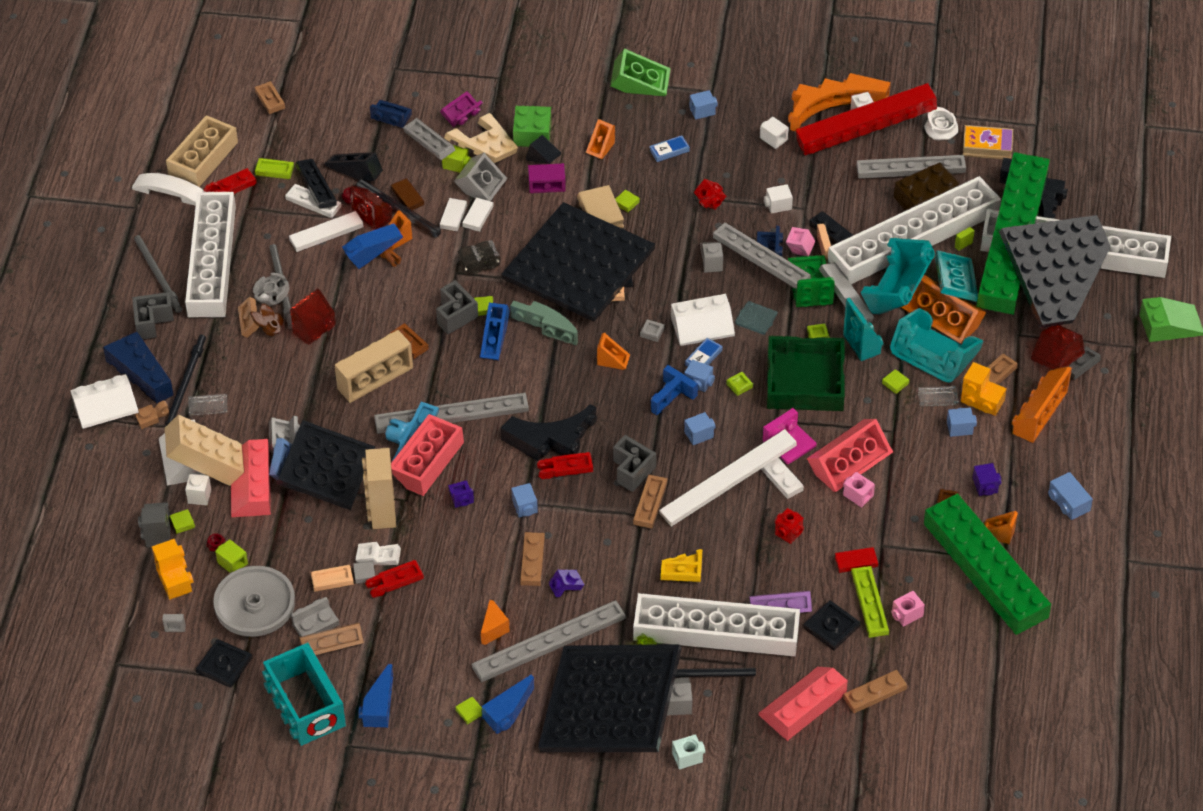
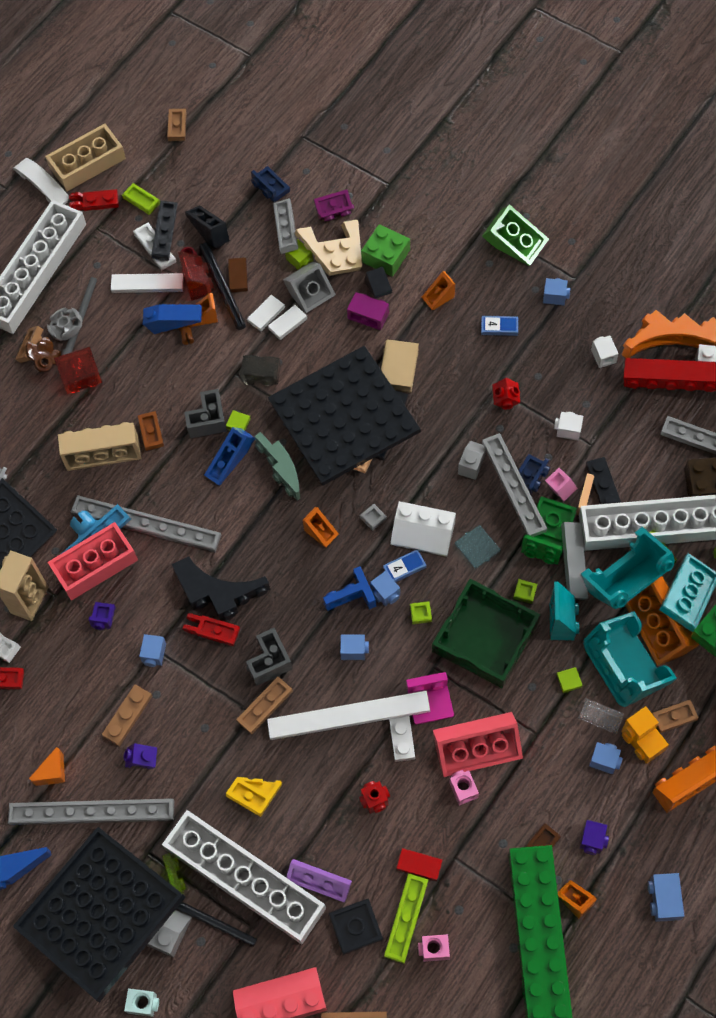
camera: 30 degrees right, 15 degrees up
(627, 200) = (428, 365): lime tile -> none

